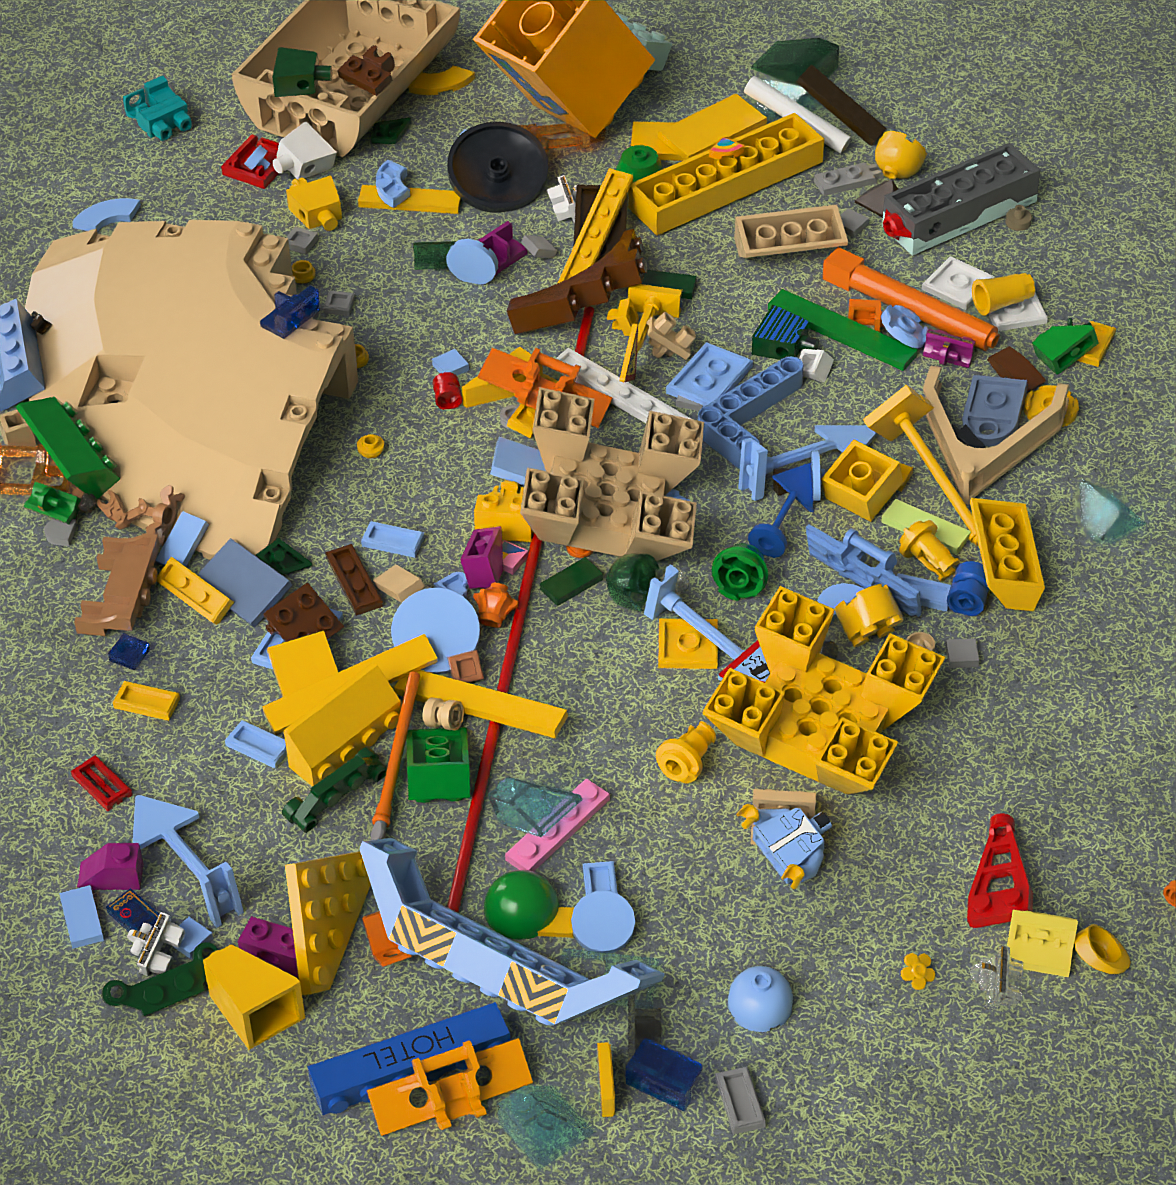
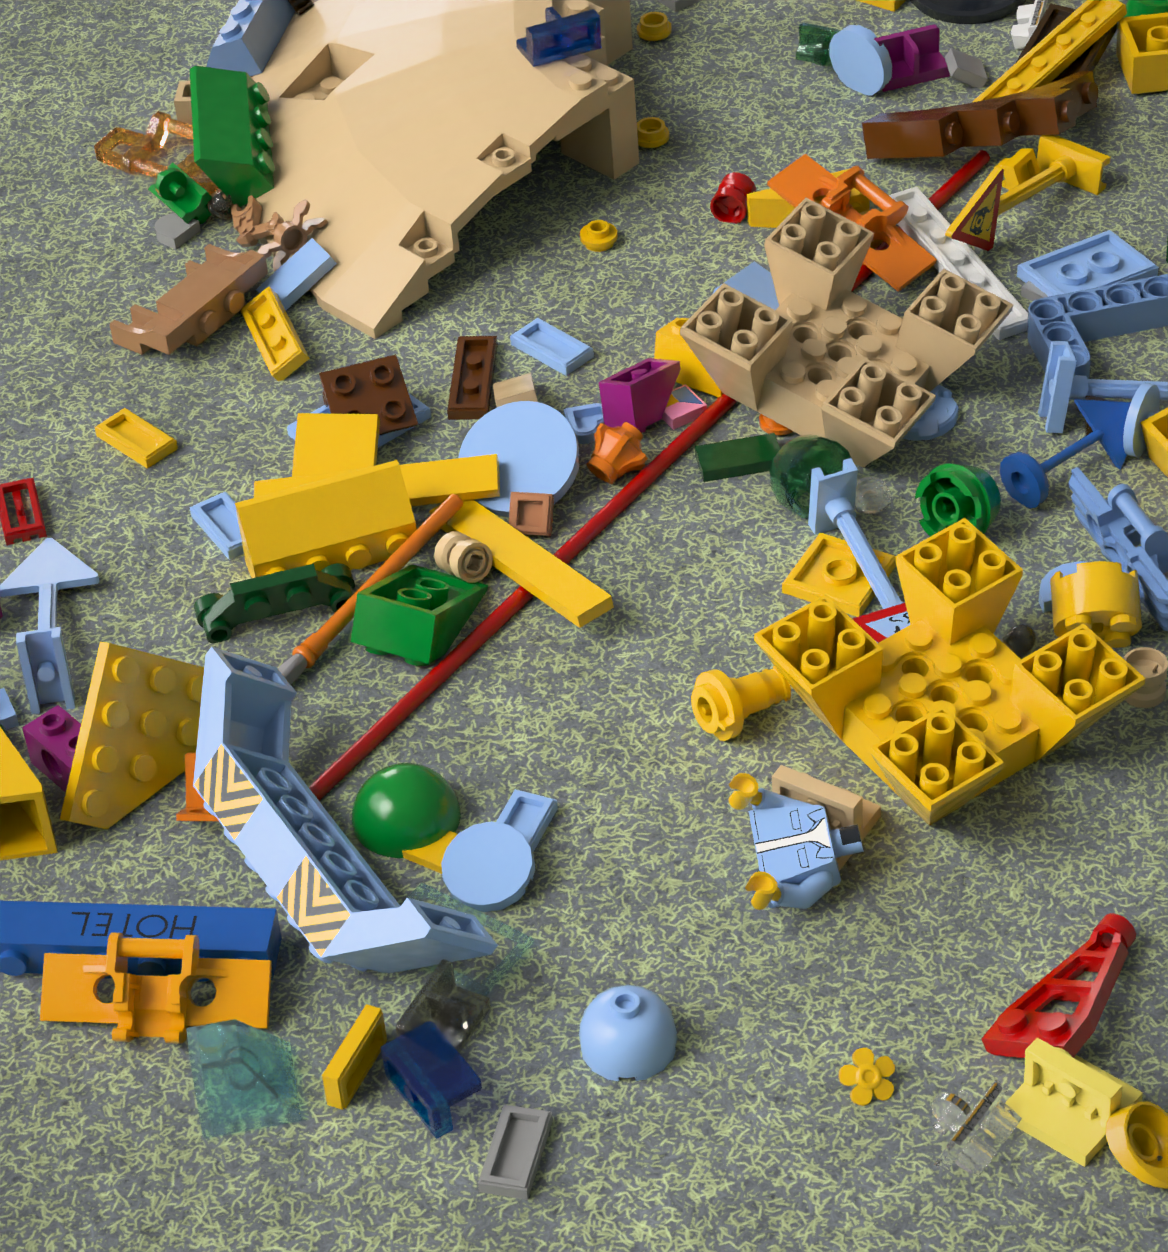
camera: 30 degrees right, 5 degrees down
(129, 651) = (152, 378): clear blue plate -> none
(245, 581) = (335, 335): sand blue tile -> none
(283, 557) = (398, 327): dark green piece -> none
(339, 303) = (675, 72): light grey tile -> none
(450, 362) = (761, 169): light blue tile -> none
(531, 805) = (492, 693): clear light blue slope -> none
(534, 850) = (517, 736): bright pink plate -> none
(668, 341) = (1054, 210): tan hips -> none
(672, 280) = (1125, 156): dark green tile -> none

